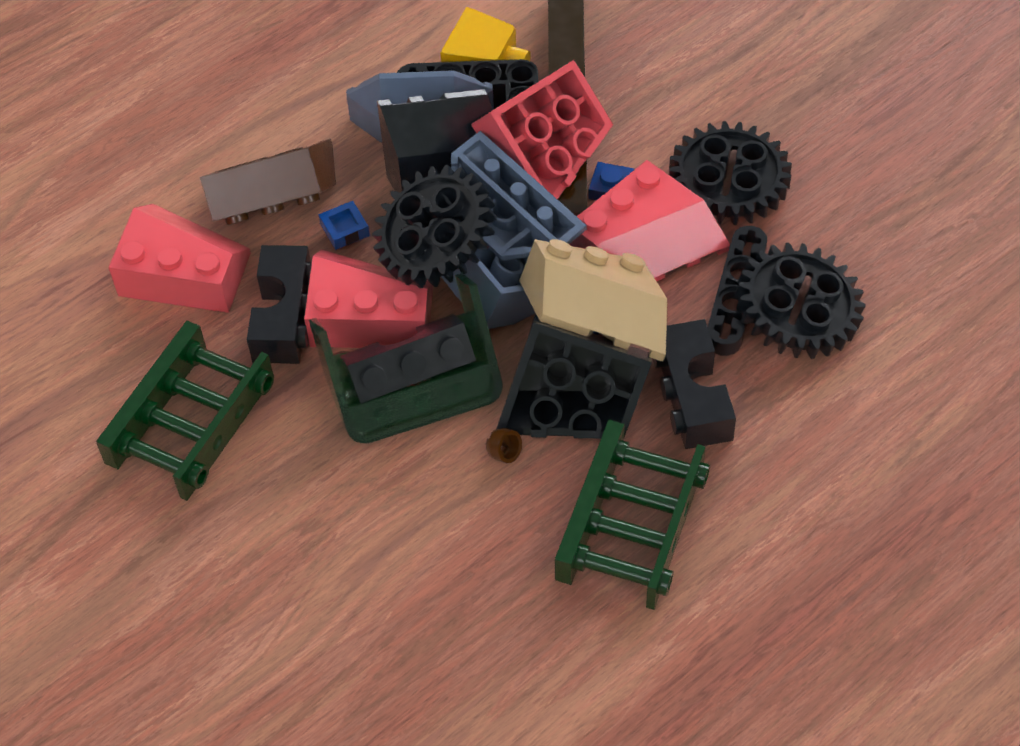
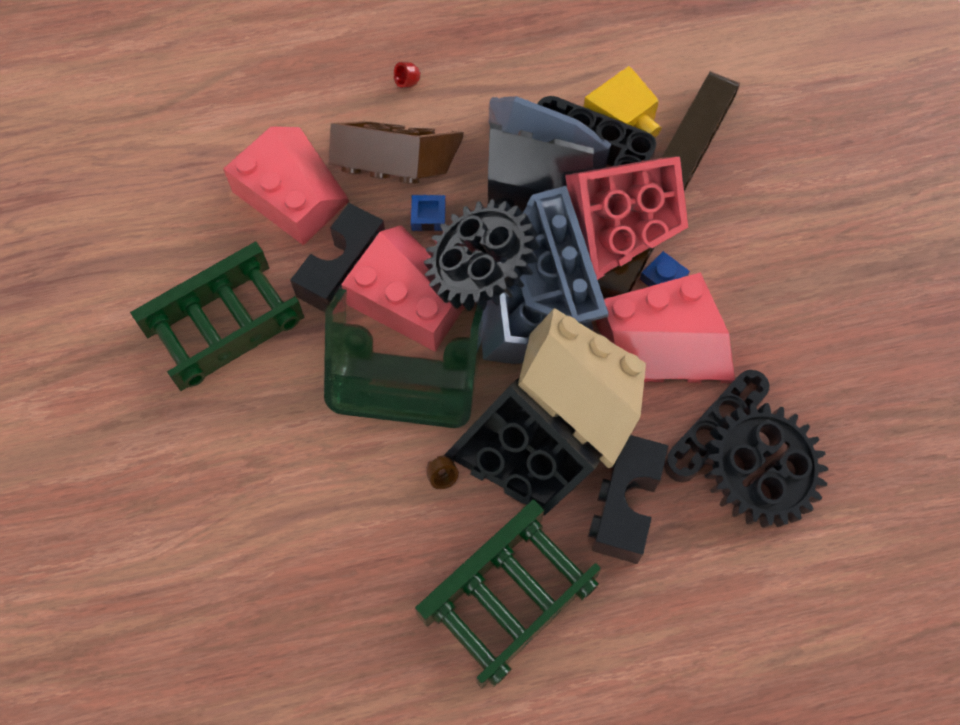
camera: 25 degrees right, 10 degrees up
(236, 104) = (406, 74): none -> red hinge
(387, 368) = (429, 363): black arch -> none
(757, 179) = (798, 333): black gear -> none

